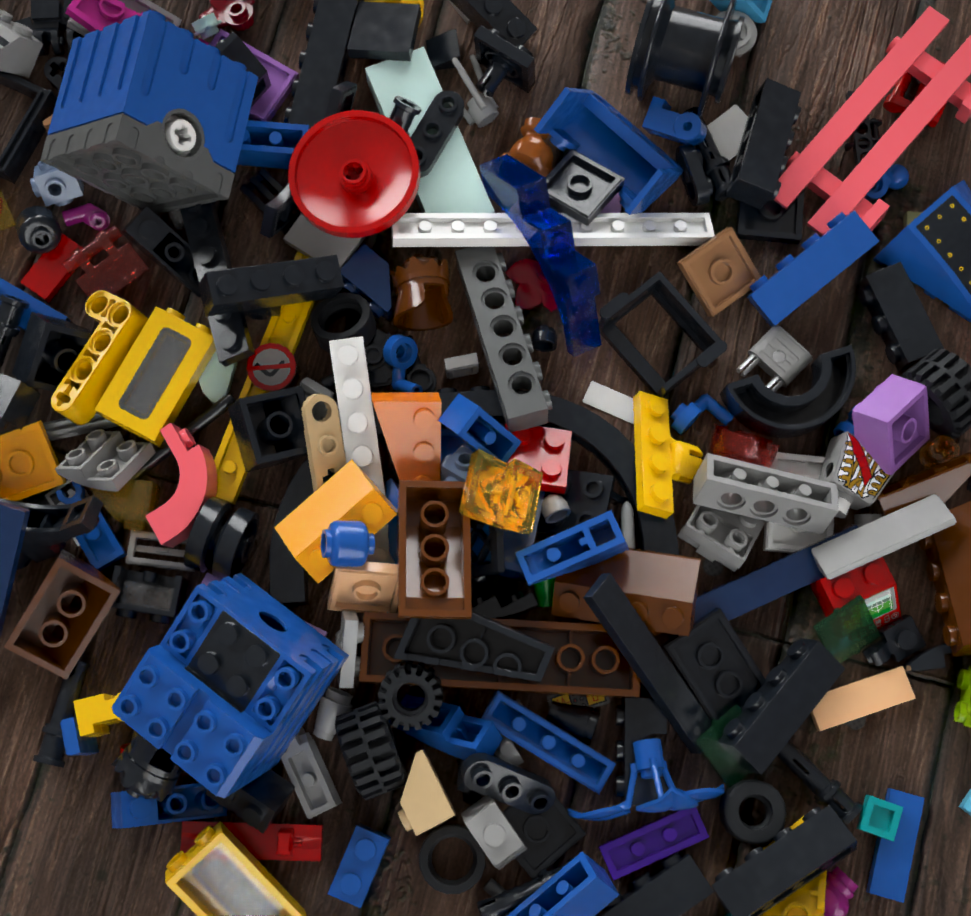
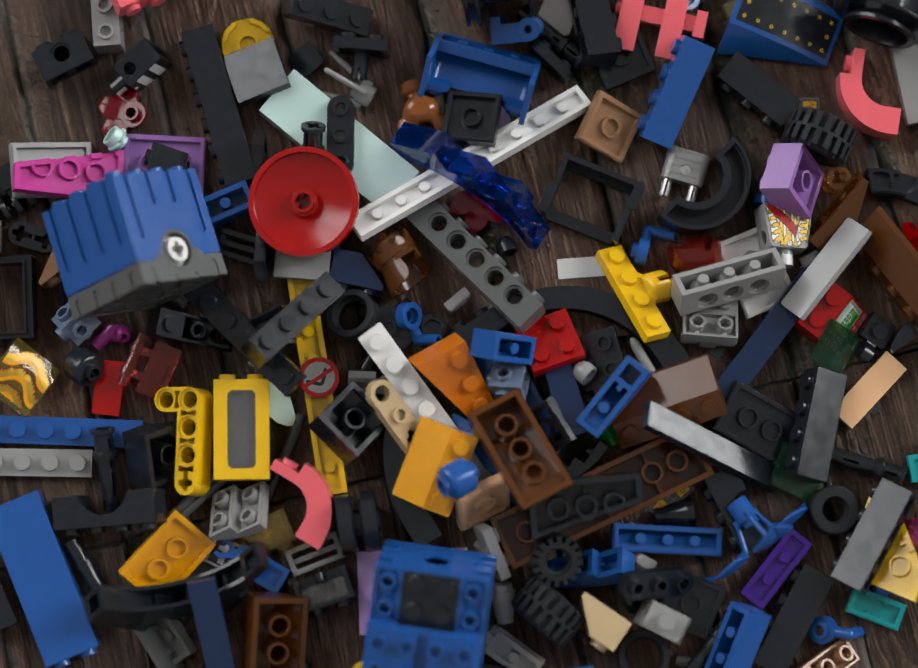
camera: 30 degrees left, 5 degrees up
(501, 492) = (544, 383): clear yellow slope -> none

